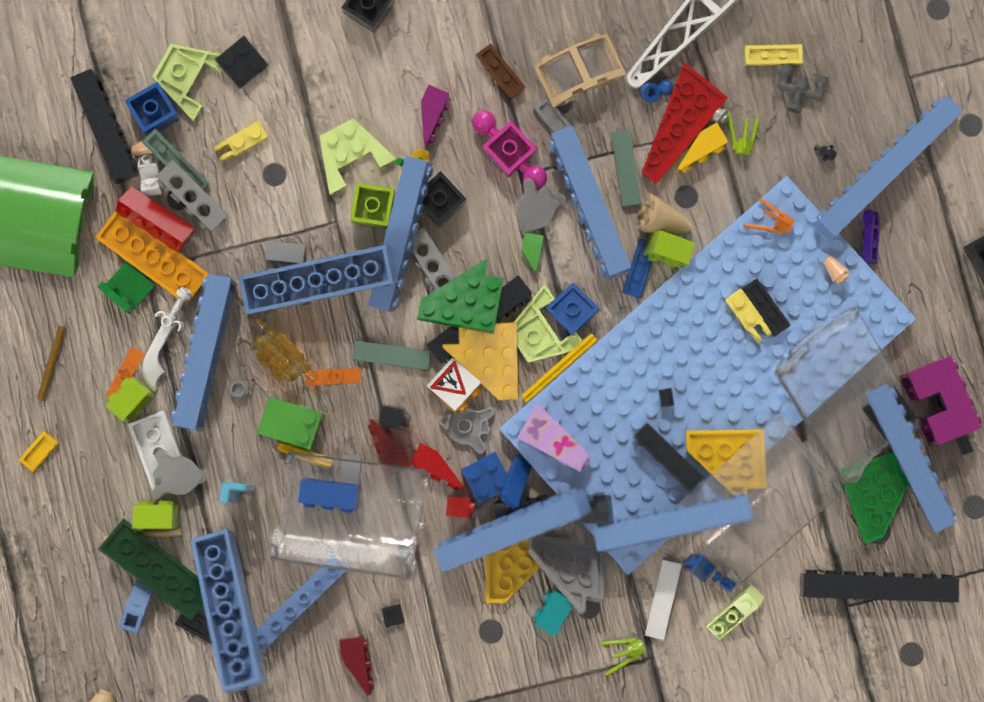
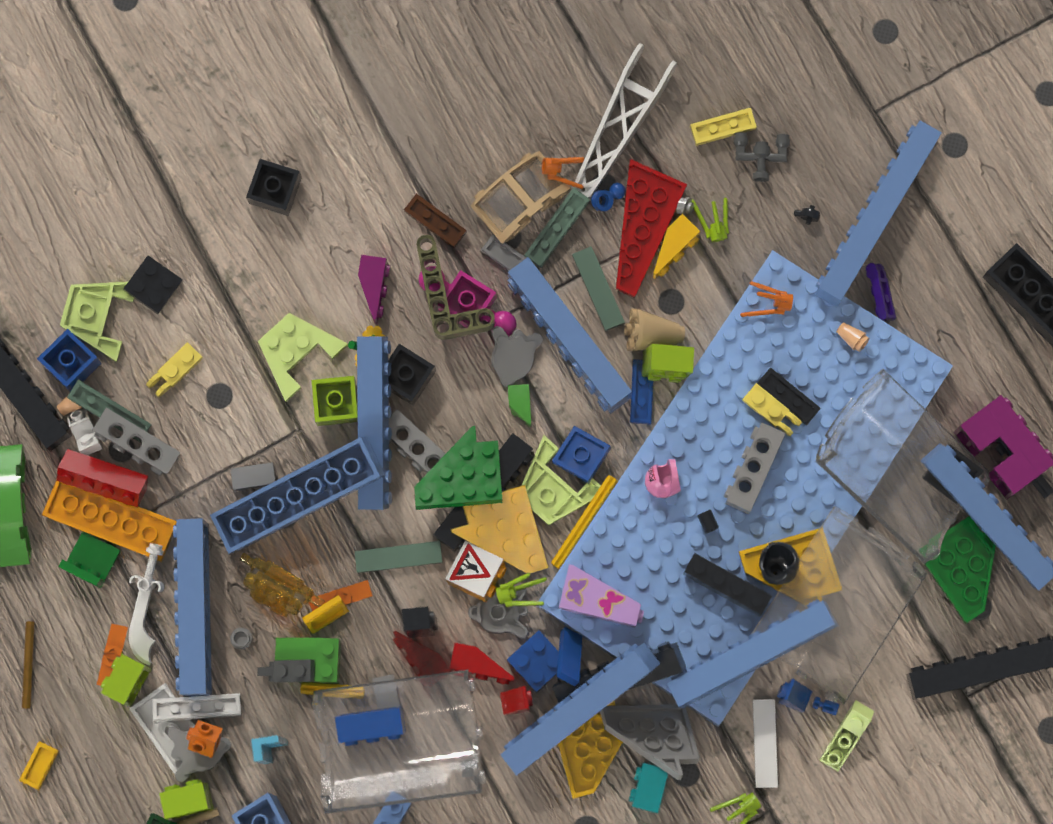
camera: 10 degrees left, 5 degrees down
(184, 468) = (204, 738): none -> orange brick
(185, 438) = (196, 707): none -> white tile
(272, 429) = (289, 671): none -> dark grey hinge
(316, 388) = (325, 614): none -> yellow tile
(477, 411) = (507, 591): none -> lime plant
(487, 139) = (439, 296): none -> olive beam
(605, 105) = (557, 227): none -> sand green tile
(616, 51) = (552, 166): none -> orange plant
(637, 351) = (663, 480): none -> bright pink helmet
(718, 451) = (779, 563): none -> black piece
(741, 340) = (745, 500): none -> light grey brick

